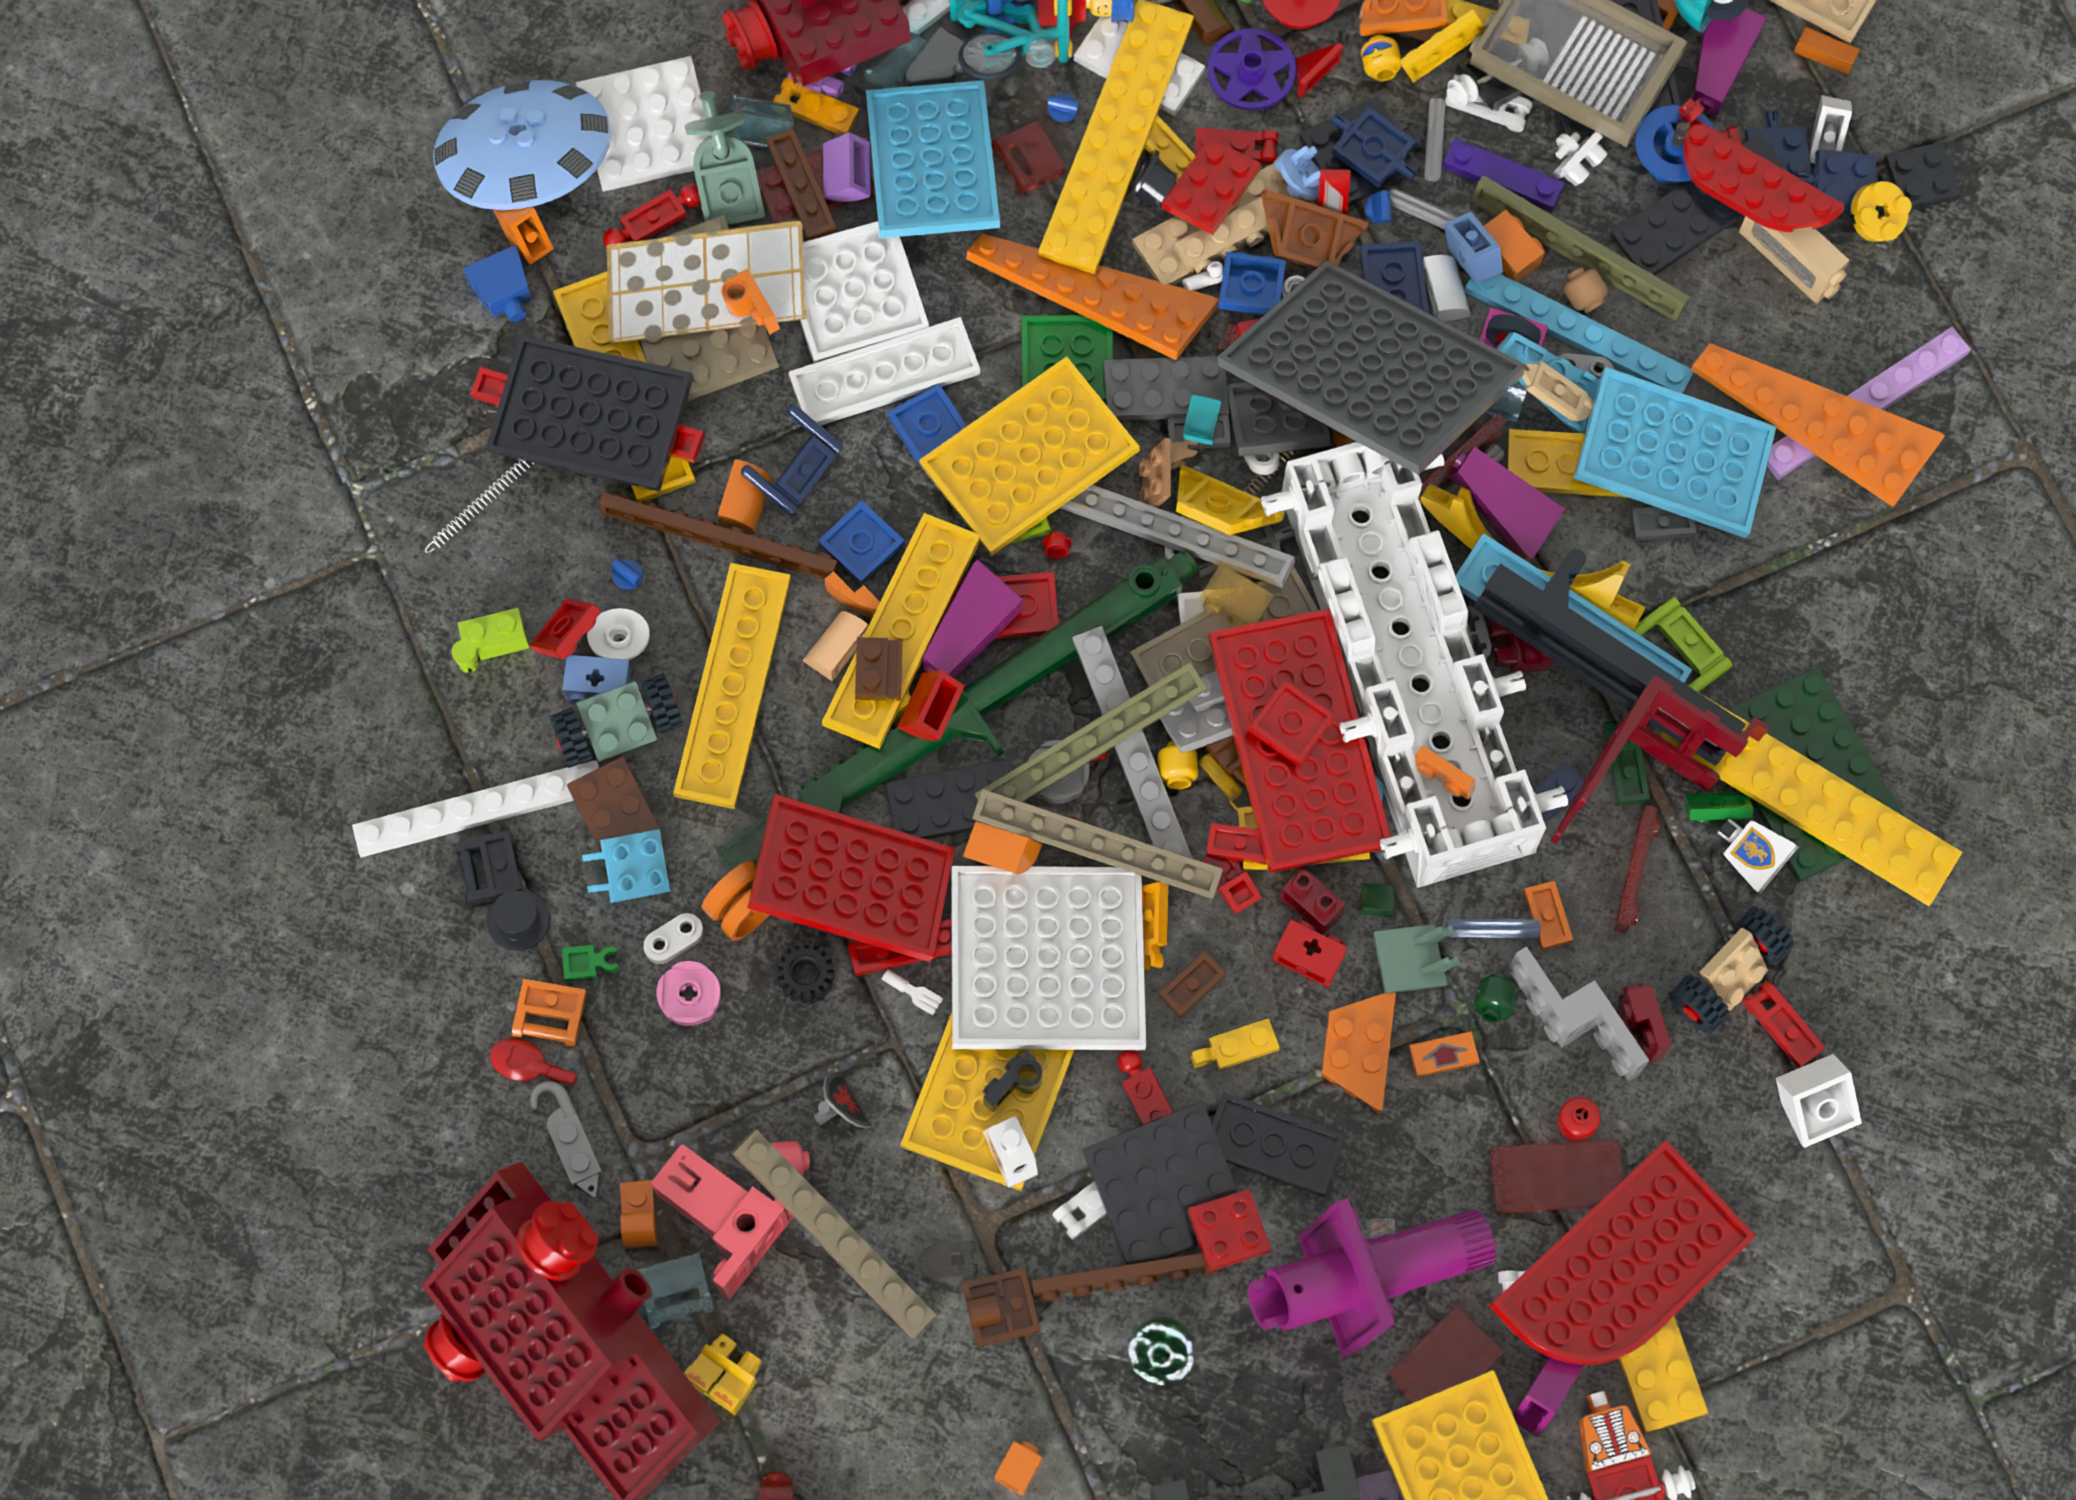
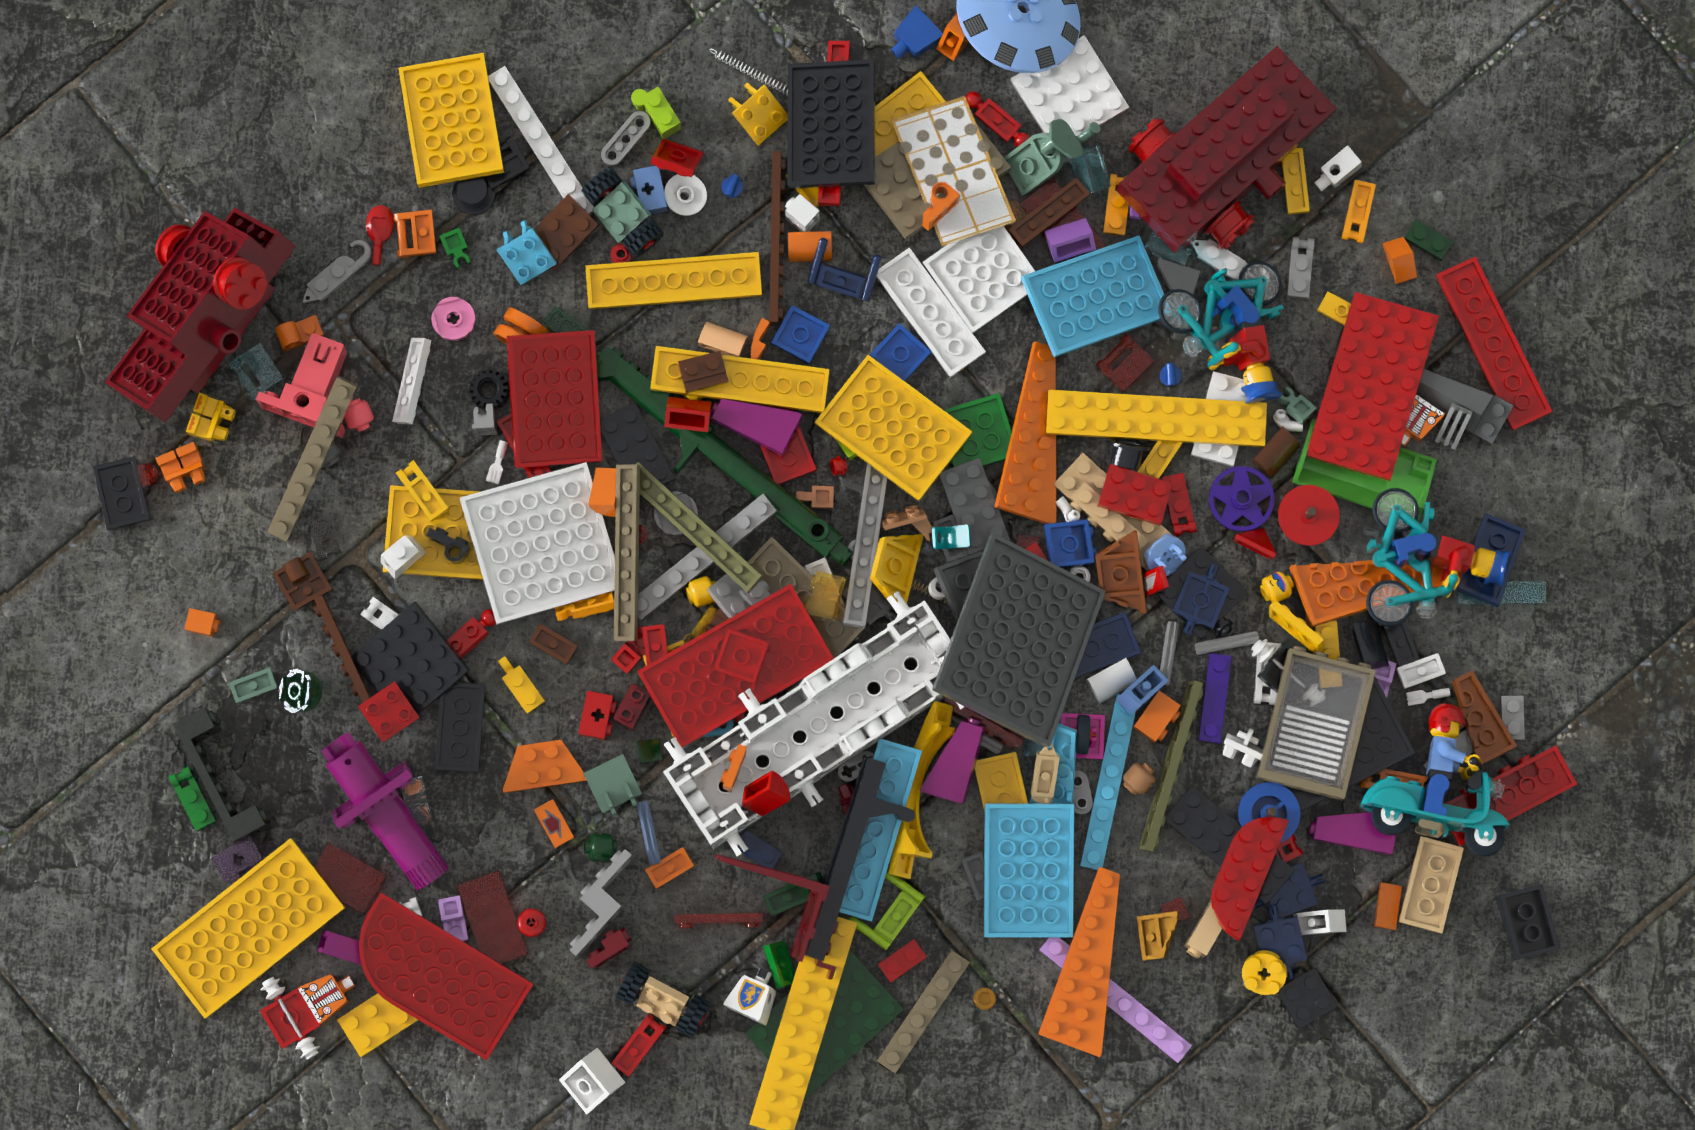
camera: 75 degrees right, 10 degrees up
(405, 914) = (451, 120): none -> yellow plate
(509, 681) = (630, 130): none -> light grey plate
(540, 507) = (759, 114): none -> yellow plate
(672, 753) = (620, 247): none -> red plate
(675, 940) = (488, 296): white plate -> none
(699, 489) = (801, 214): none -> white brick
(759, 1074) = (411, 381): none -> white plate
(777, 1434) = (175, 473): none -> orange hips
(842, 1101) = (407, 439): shield -> none
(853, 979) = (487, 423): none -> light grey hinge
(924, 1098) = (422, 491): none -> yellow plate
(1092, 580) = (820, 497): none -> nougat plate
(1131, 1419) = (253, 685): none -> sand green plate
(1379, 207) = (1159, 616): blue plate -> none
(1494, 737) = (766, 794): none -> red brick
(1539, 1228) = (453, 917): none -> lavender slope
(1690, 110) = (1293, 815): red plate -> none
(1750, 652) = (902, 961): none -> red plate
(1770, 300) = (1175, 905): none -> clear red plate
(1796, 326) = (1156, 934): none -> pearl gold wing
(1826, 644) = (923, 1011): none -> dark tan plate
(1827, 563) = (984, 998): none -> pearl gold tile

